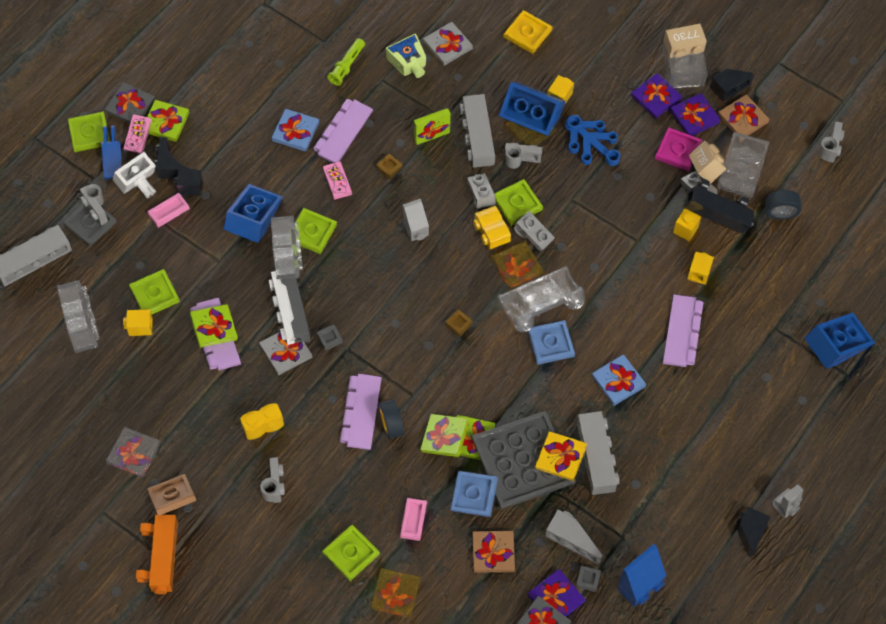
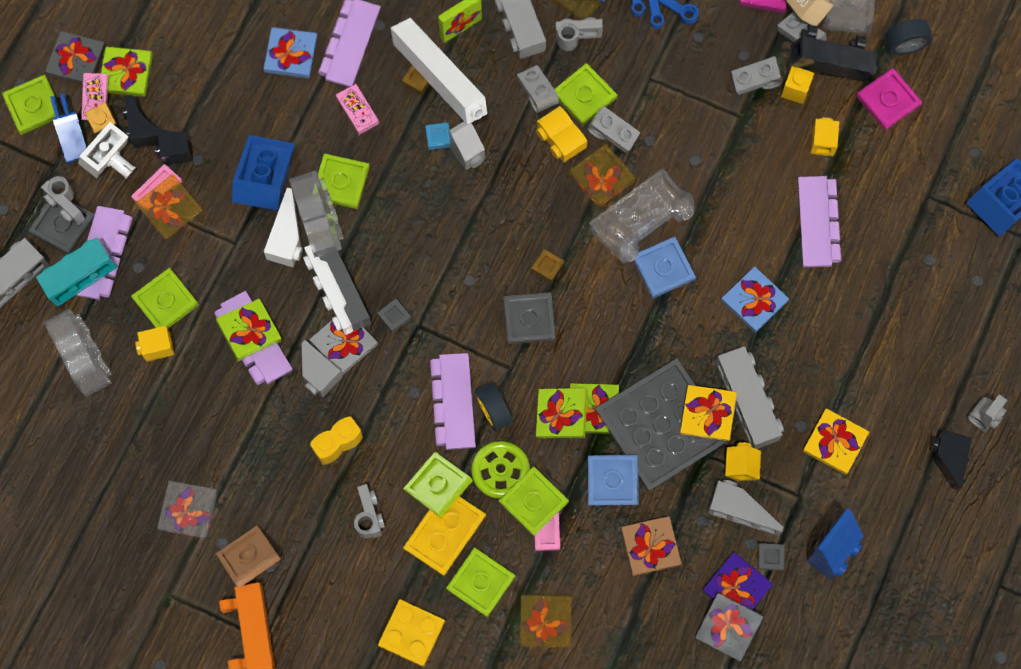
camera: 10 degrees left, 10 degrees up
(91, 257) = (76, 271): none -> teal brick
(111, 251) = (106, 227): none -> lavender windscreen
(137, 147) = (100, 117): none -> plate
(174, 224) = (169, 207): none -> clear yellow tile
(257, 264) = (284, 239): none -> white slope
(260, 367) = (318, 371): none -> light grey slope
(286, 580) = (411, 633): none -> yellow plate
(331, 508) = (442, 539): none -> yellow tile
(334, 470) = (437, 484): none -> lime tile
(374, 480) = (480, 463): none -> lime plate
(394, 211) = (438, 136): none -> dark azure tile
(406, 161) = (439, 71): none -> white brick
(407, 497) = (533, 501): none -> lime tile
(435, 360) = (529, 318): none -> dark grey tile
(581, 501) = (743, 462): none -> yellow brick
(657, 212) = (757, 75): none -> light grey plate
(660, 500) = (836, 441): none -> yellow tile
(758, 250) = (889, 99): none -> dark pink tile

